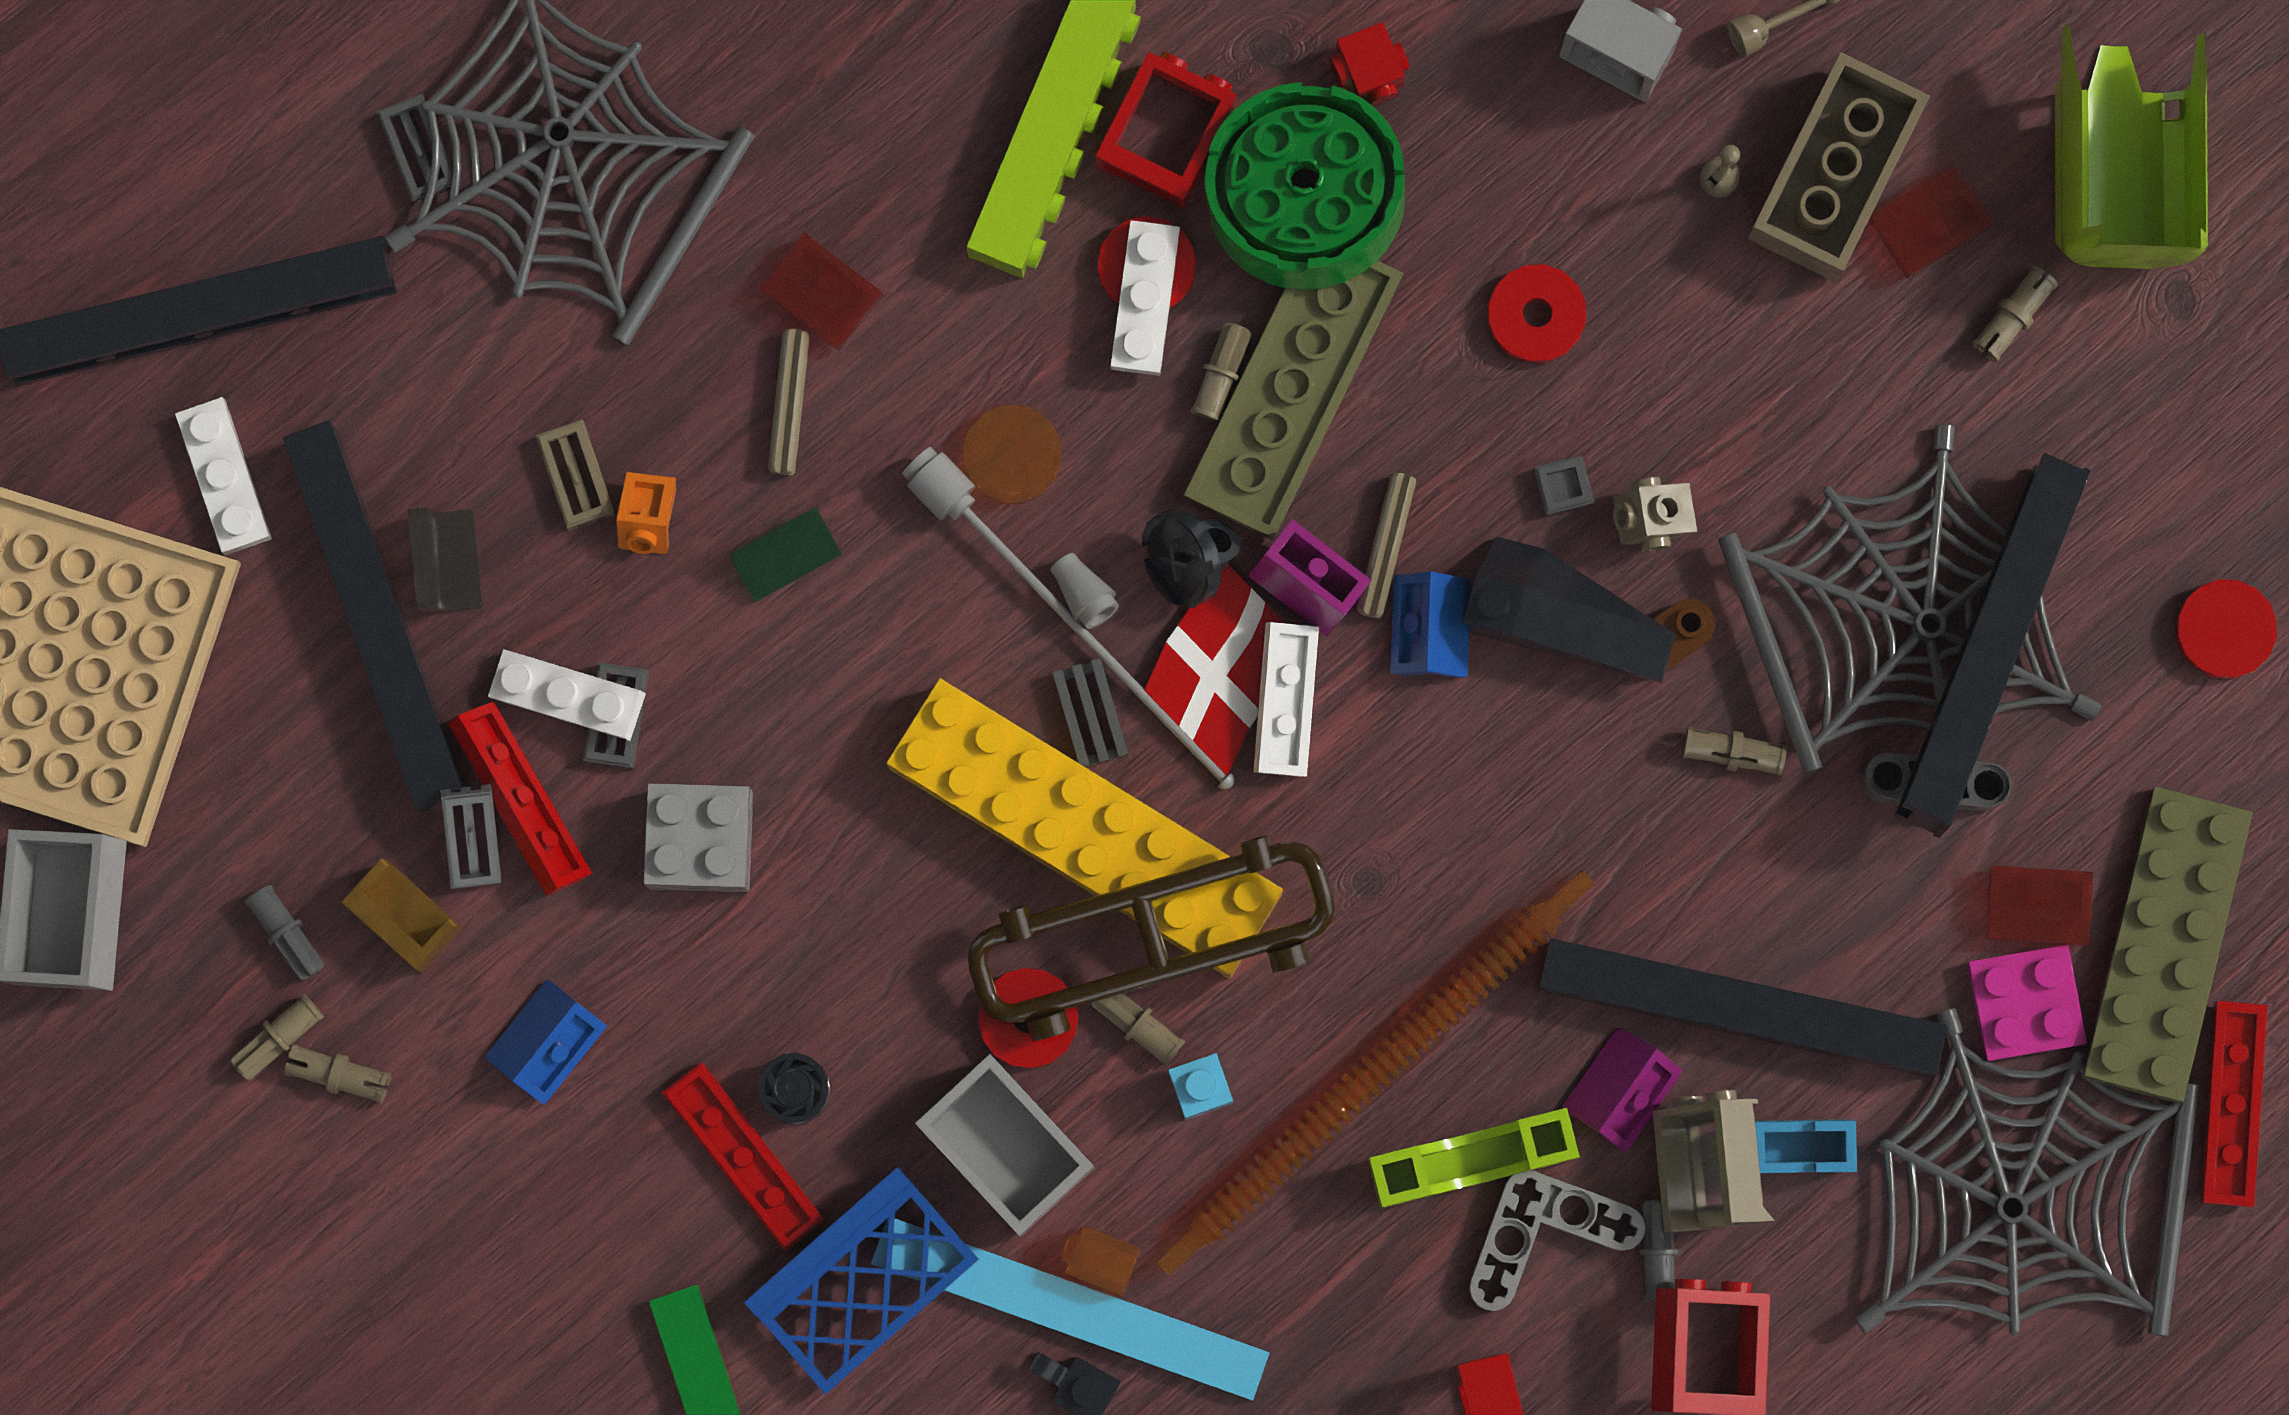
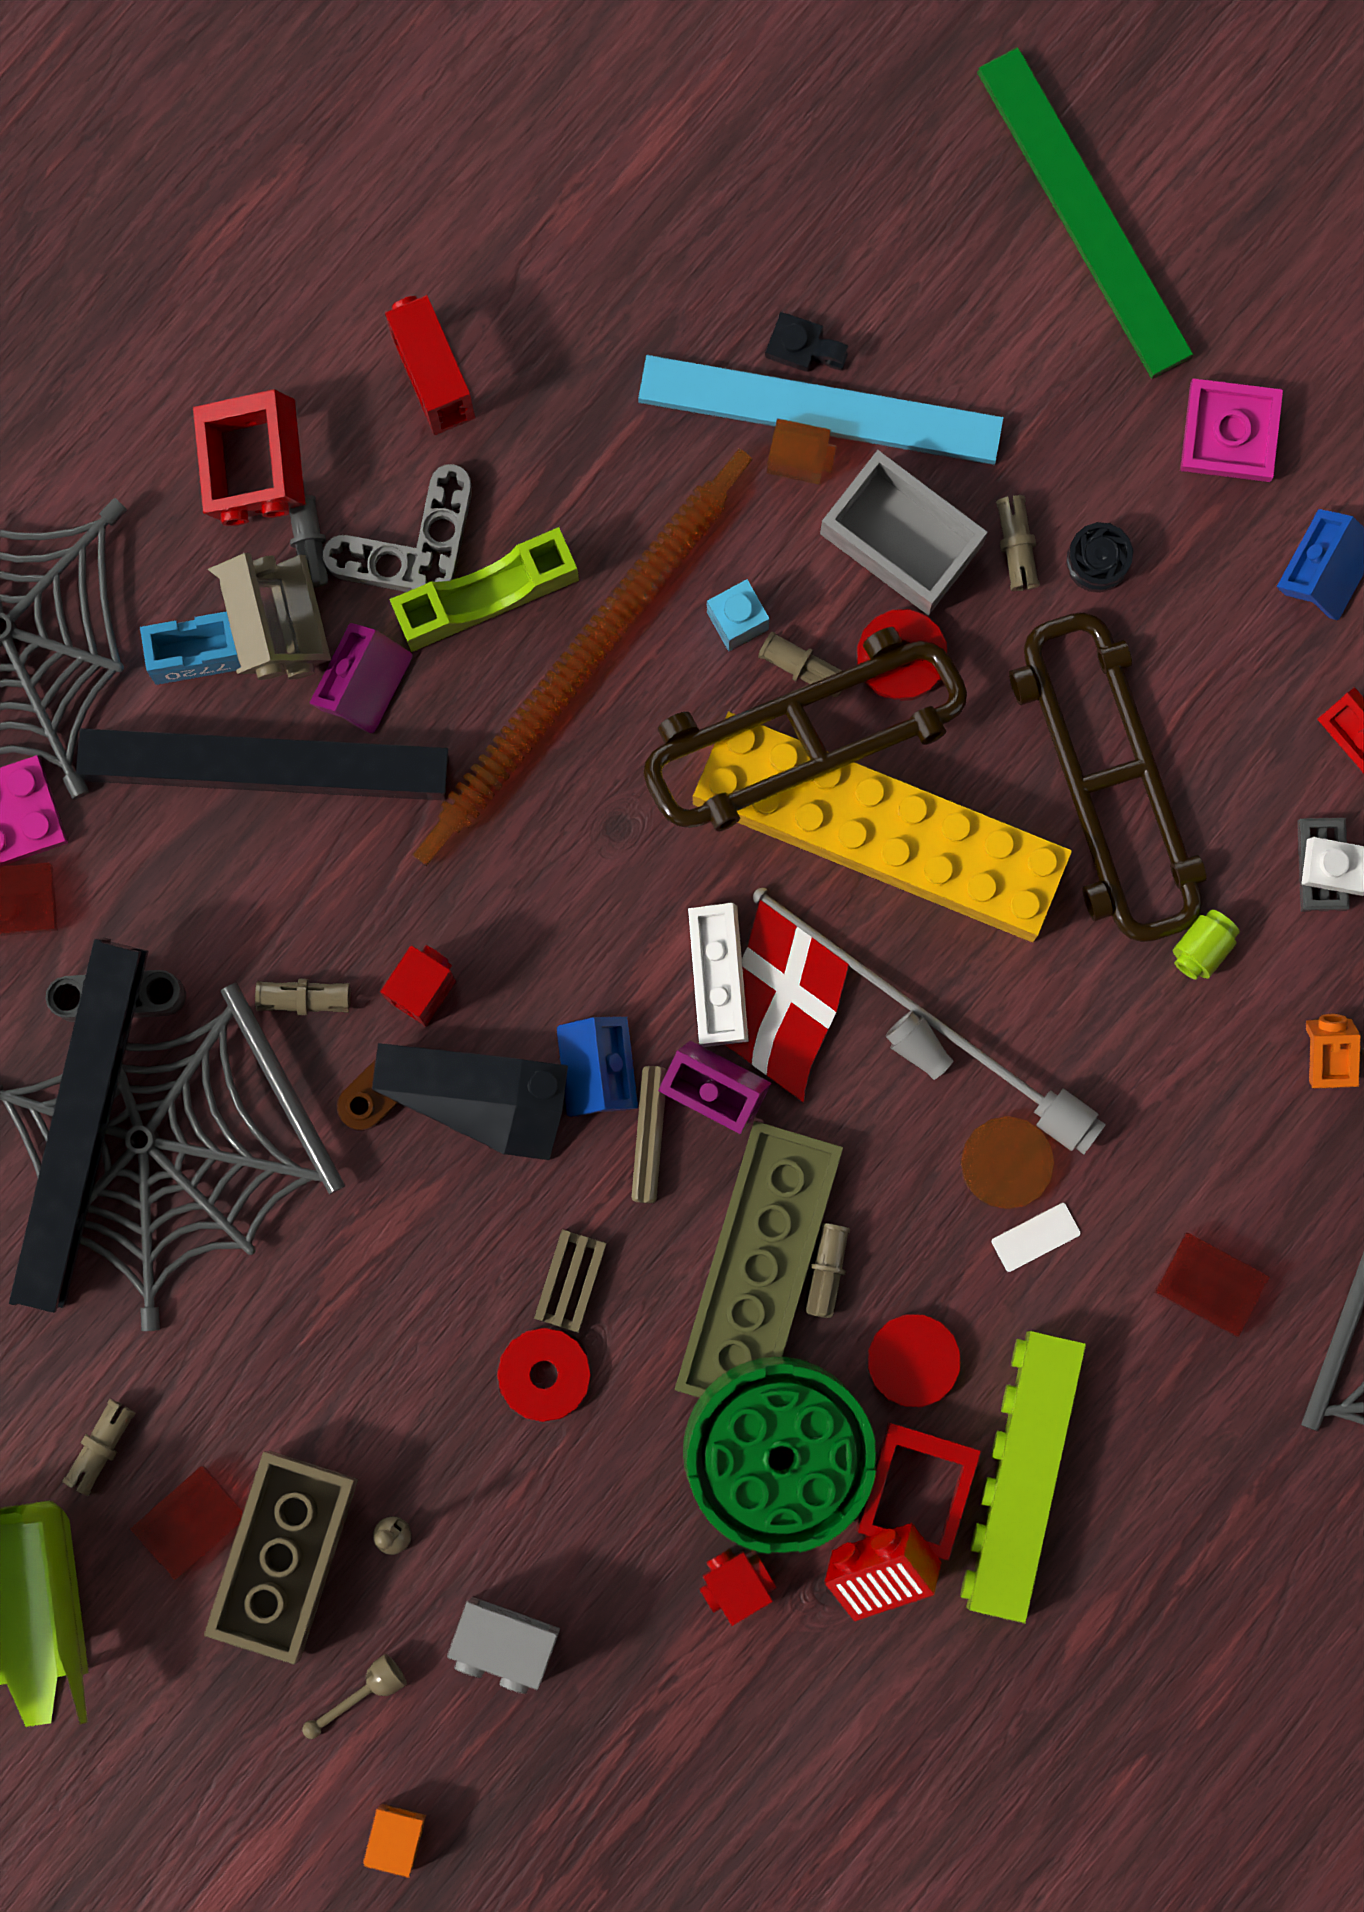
camera: 170 degrees right, 0 degrees up
(622, 1207) = (1231, 430): none -> dark pink plate
(698, 837) = (1228, 762): light grey brick -> none
(743, 1157) = (1132, 493): red tile -> none
(759, 647) = (1205, 945): none -> lime brick
(785, 554) = (1197, 1034): clear green slope -> none
(788, 402) = (1221, 1177): dark tan axle -> none
(832, 1247) = (1040, 424): blue fence -> none
(880, 1120) = (1017, 543): none -> dark tan pin
(891, 961) = (1107, 896): none -> dark brown bar
(995, 374) = (1035, 1237): none -> white sticker
(1078, 673) = (876, 900): dark grey tile -> none
(1145, 298) = (910, 1326): white plate -> none
(1184, 556) = (833, 1085): black tile -> none
(1218, 49) = (883, 1572): none -> red brick
(1512, 368) = (558, 1319): none -> dark tan tile
(1563, 486) = (494, 1217): dark grey tile -> none
(1608, 735) = (419, 983): none -> red brick
(1654, 514) = (407, 1198): dark tan brick -> none

